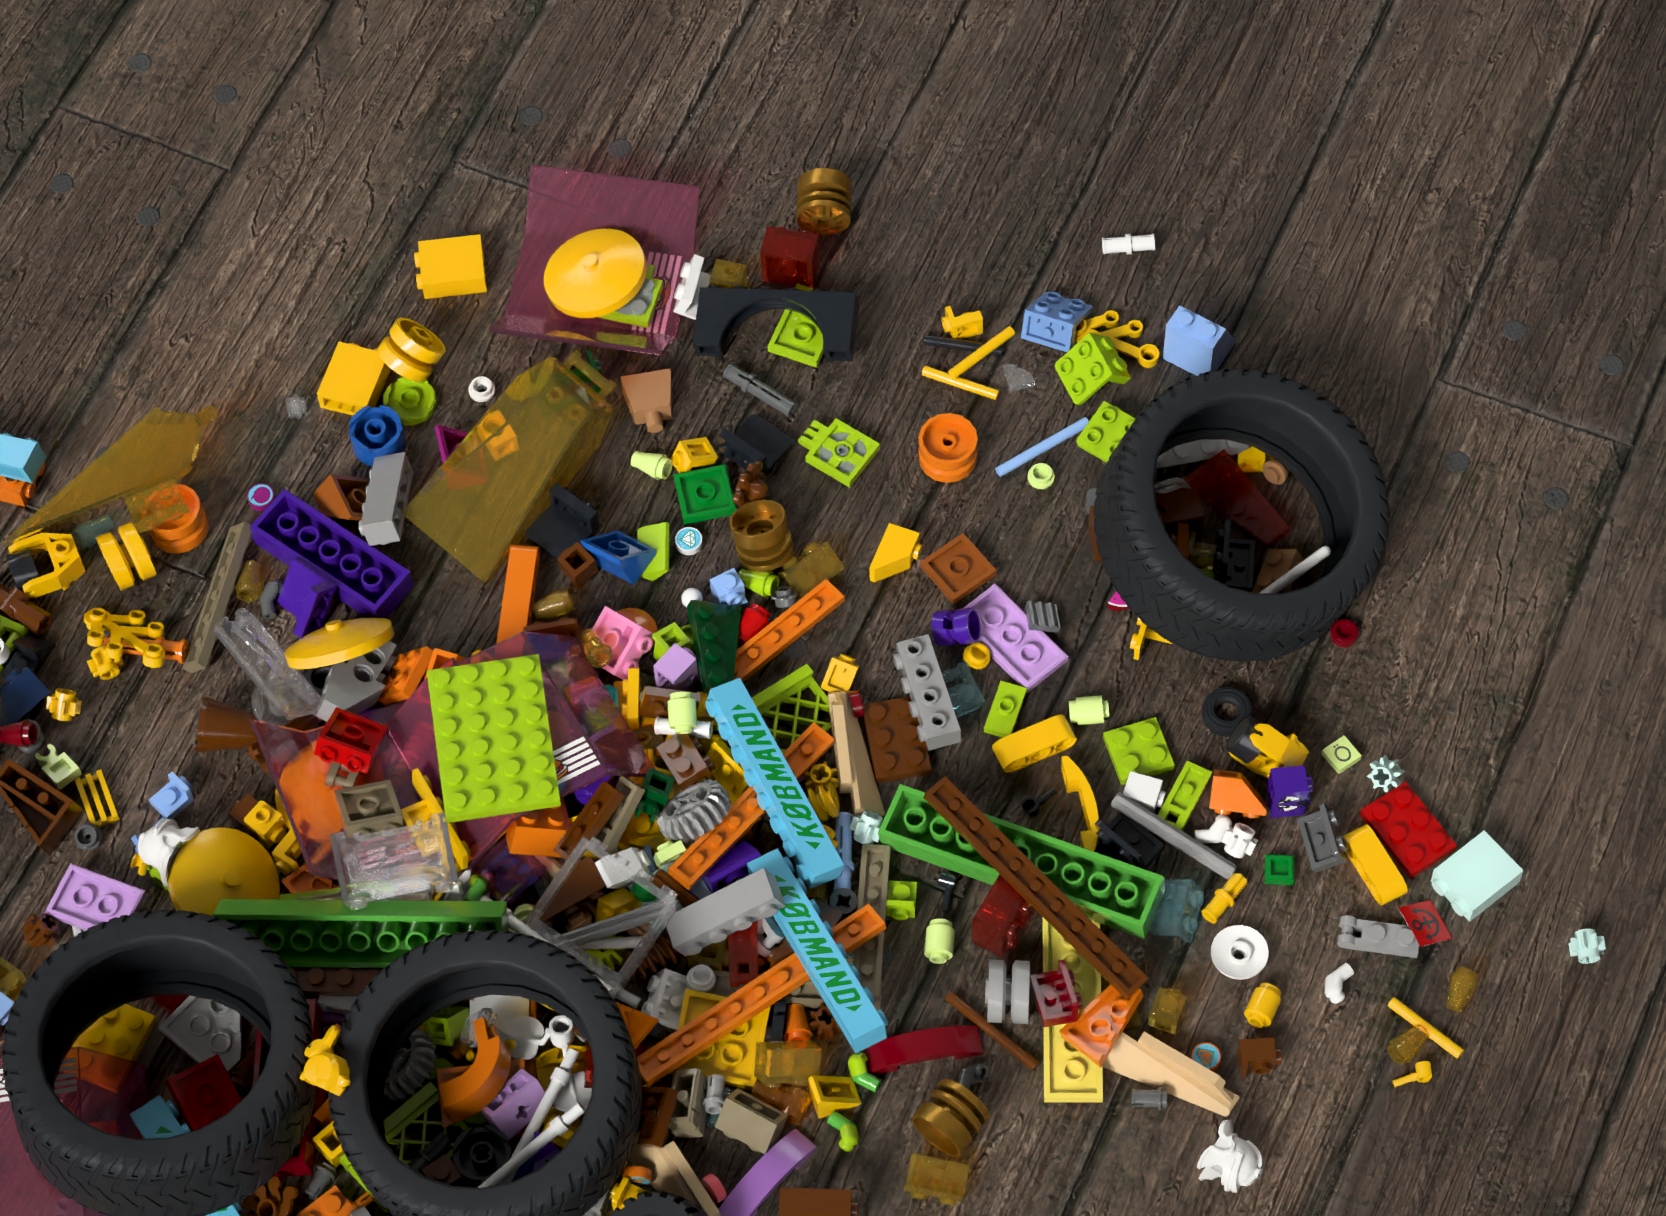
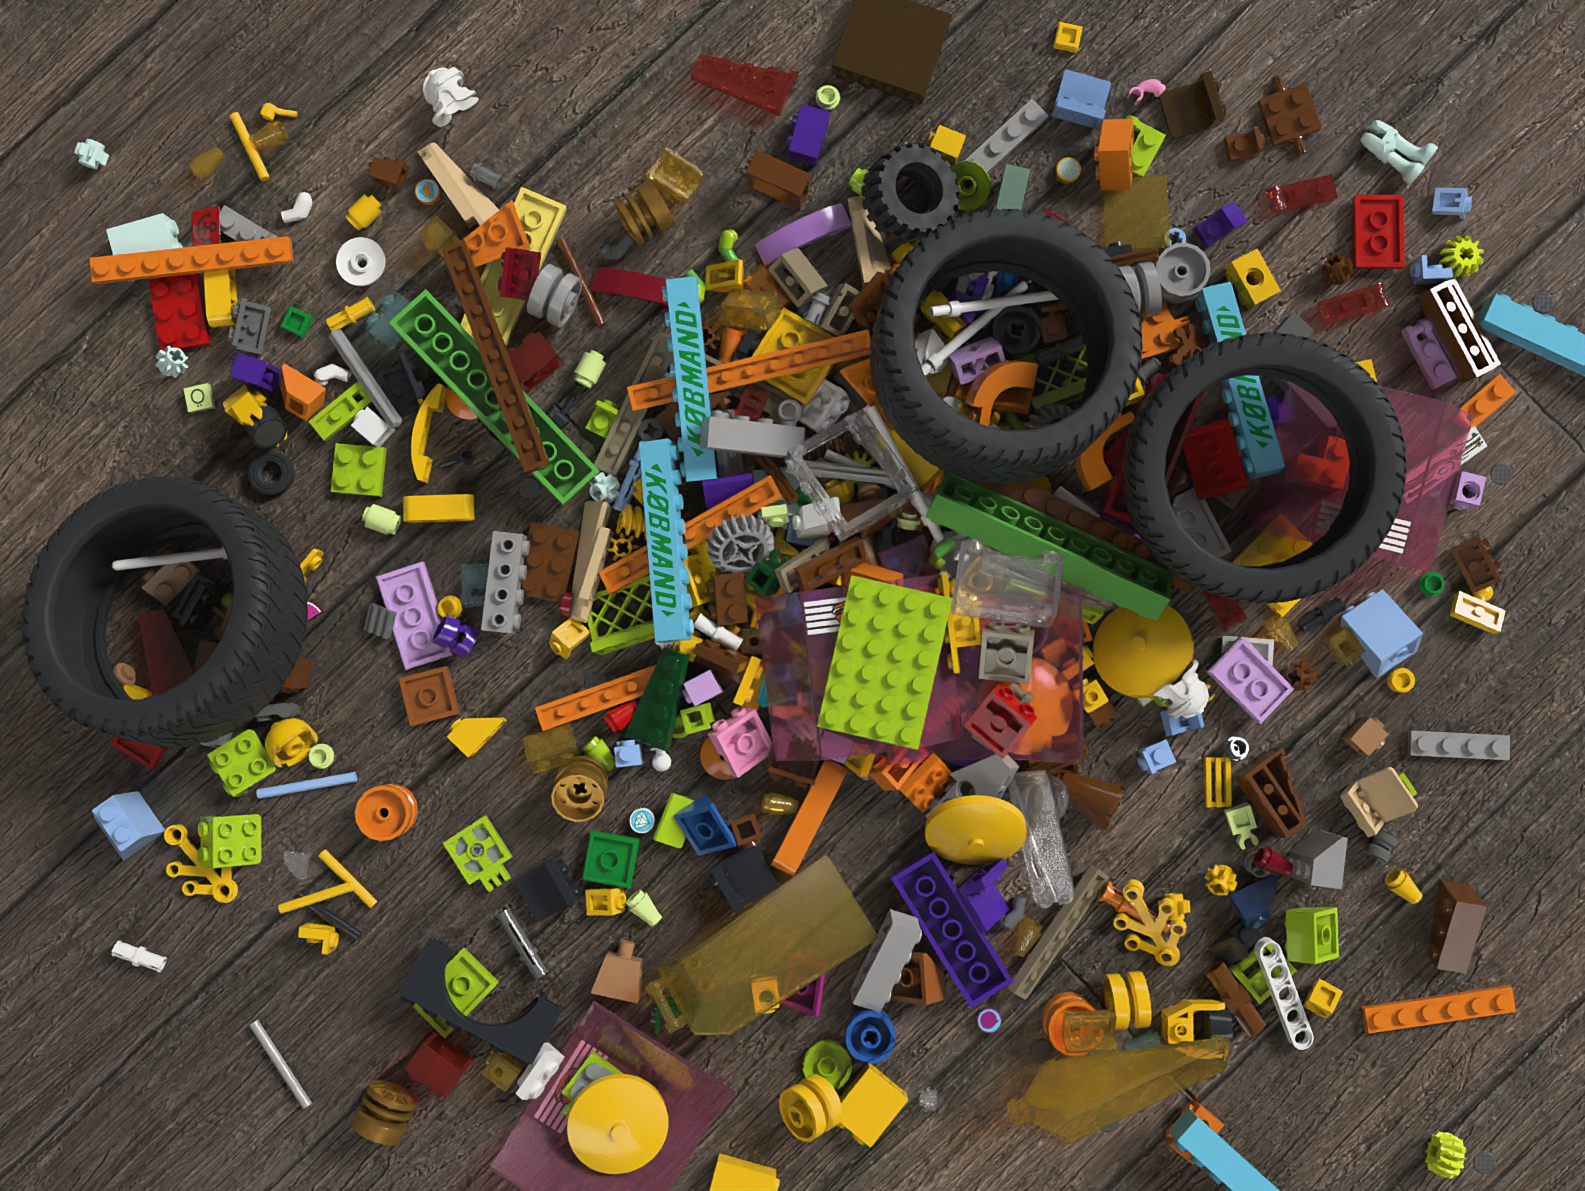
camera: 160 degrees left, 25 degrees up
(325, 1067) = (1138, 385): yellow animal -> none
(478, 384) = (761, 1056): white plate -> none
(596, 650) = (761, 737): clear yellow cone -> none
(682, 712) = (715, 634): yellowish green brick -> none
(714, 1188) = (847, 240): coral tile -> none
(751, 485) = (570, 836): reddish brown animal -> none
(784, 597) = (584, 729): dark grey plate -> none
(947, 209) = (280, 1064): none -> light grey bar
(1005, 709) = (448, 551): lime plate -> none
(1054, 320) = (237, 903): medium blue bracket -> none
(1078, 473) = (289, 741): none -> yellow cylinder
(1239, 840) = (315, 353): white gear -> none
(1413, 873) = (191, 260): none -> orange plate

